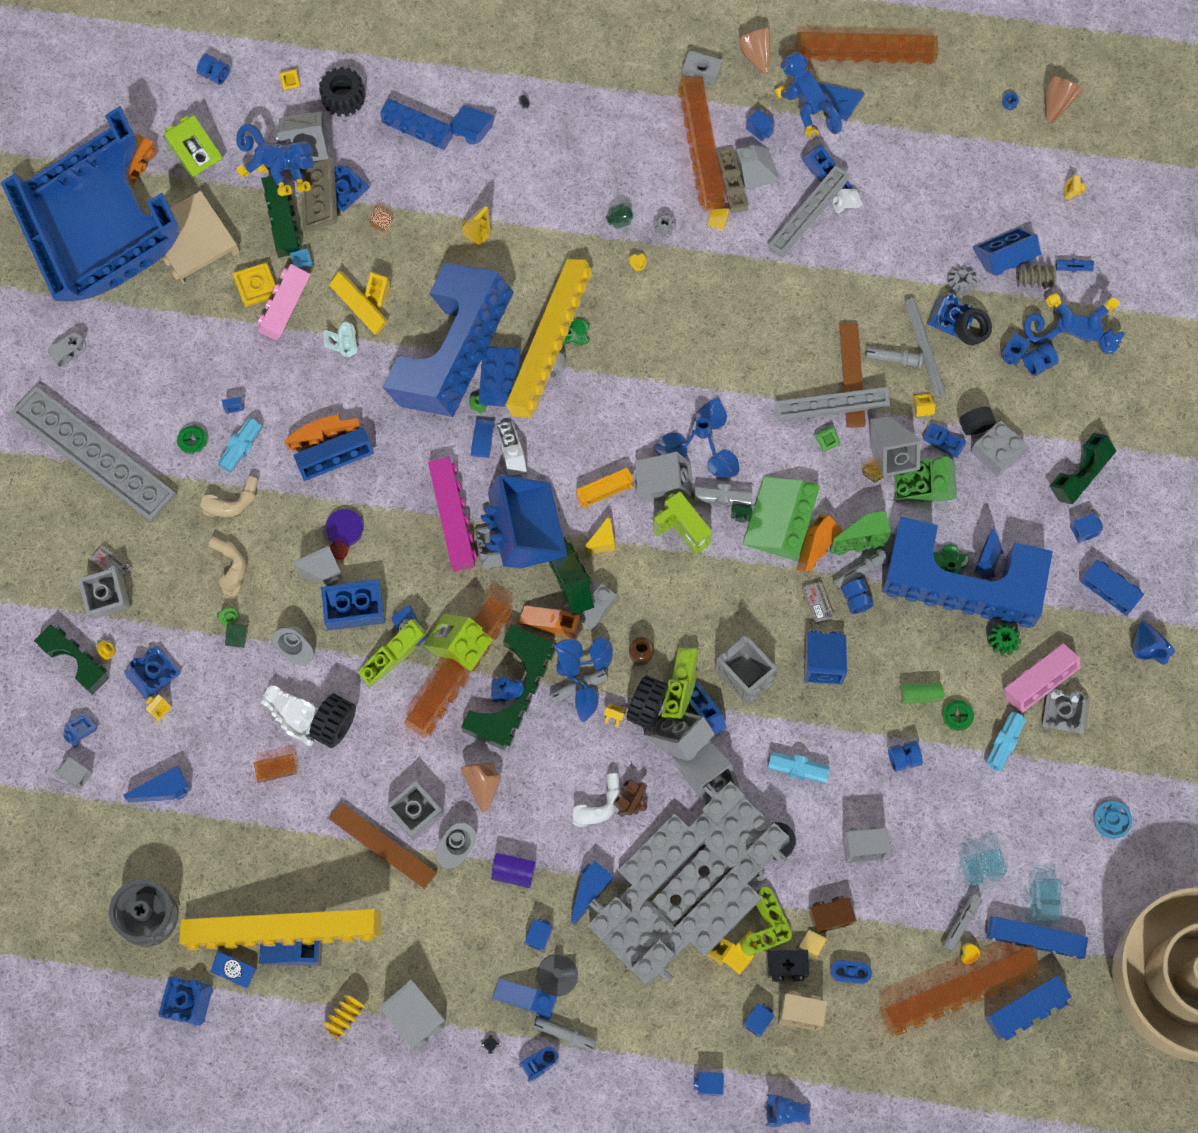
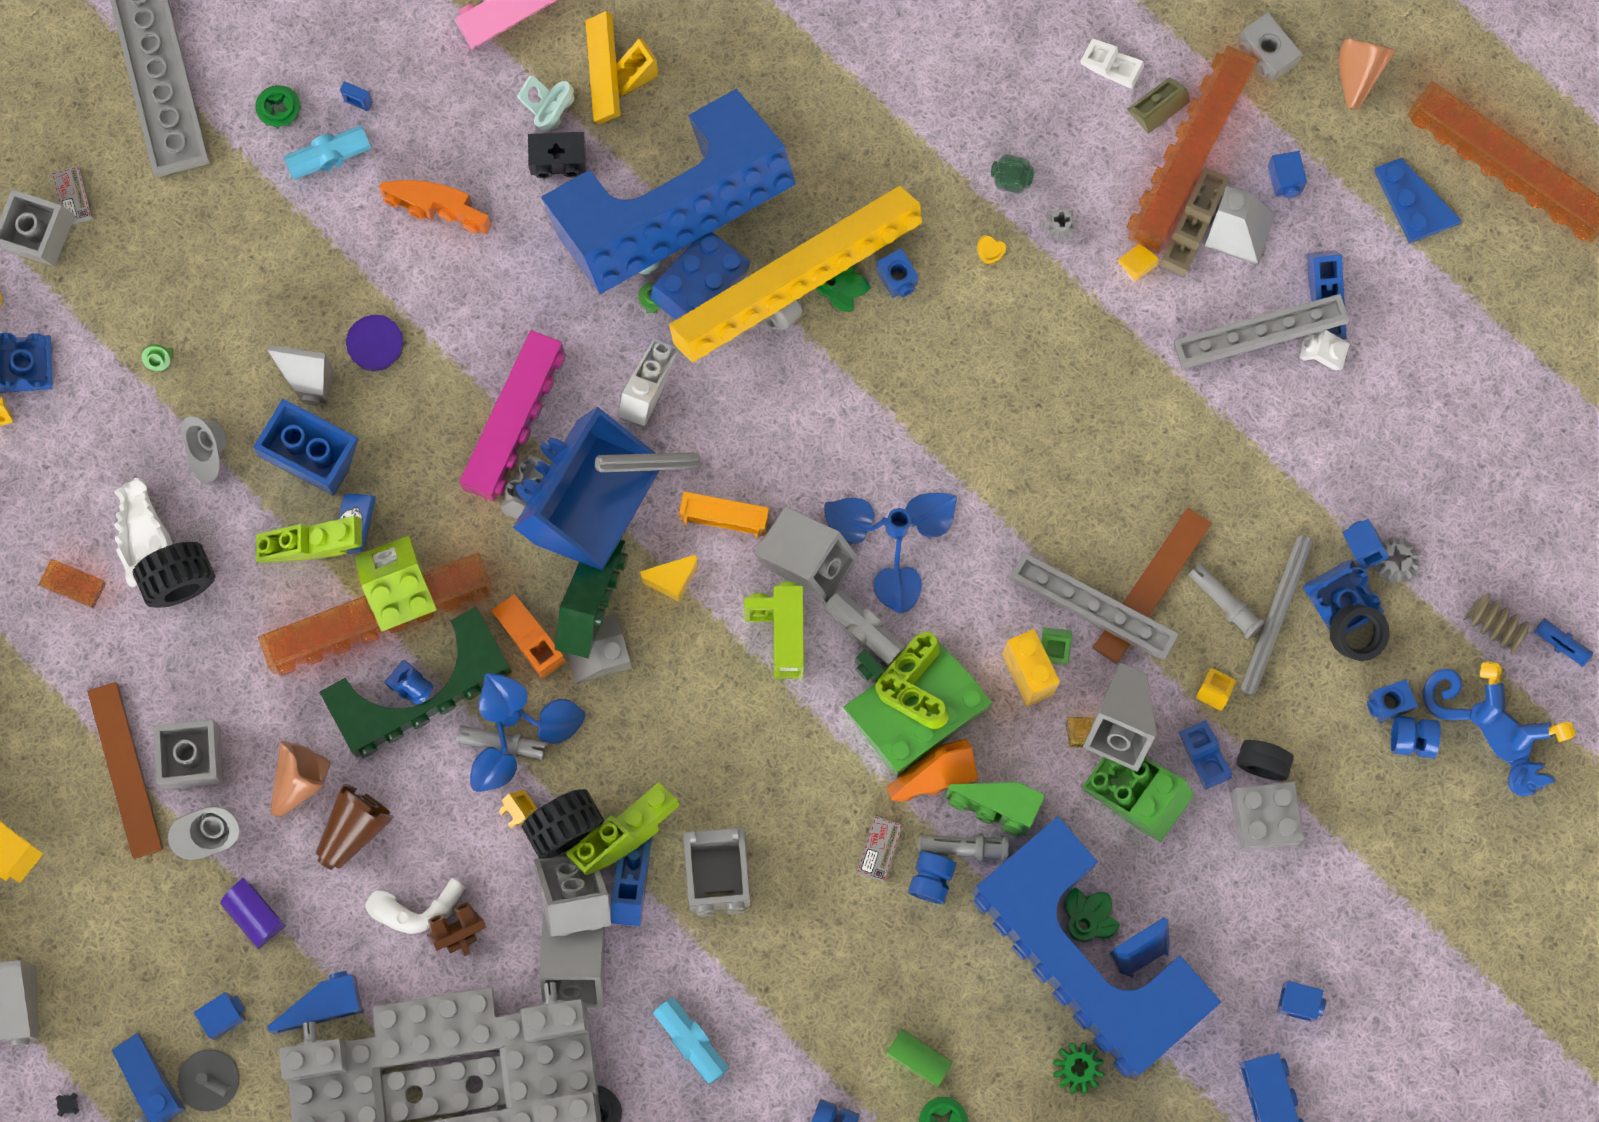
camera: 35 degrees right, 5 degrees up
(214, 507) = (240, 210): tan piece -> none
(232, 580) = (192, 316): tan piece -> none
(236, 635) = (148, 388): dark green slope -> none
(333, 454) = (426, 241): blue brick -> none
(339, 550) = (345, 366): clear red plate -> none
(369, 363) = (542, 152): none -> black brick
(477, 226) = (819, 69): yellow slope -> none
(482, 438) = (623, 345): blue slope -> none
(533, 786) = (350, 827): none -> reddish brown cone
(545, 487) = (647, 462): none -> light grey axle
(597, 298) = (894, 263): none -> blue brick
(626, 129) = (1108, 62): none -> white slope
(645, 646) = (600, 748): reddish brown head -> none
(667, 133) = (1159, 104): none -> olive slope
(770, 510) = (905, 682): none -> lime beam
(809, 93) = (1379, 164): blue animal -> none
(825, 657) = (830, 925): blue slope -> none
(826, 455) = (1030, 667): none -> yellow brick
(943, 281) = (1365, 544): none -> blue brick
(1008, 250) = (1487, 561): blue slope -> none
(1096, 454) = (1391, 914): dark green arch -> none

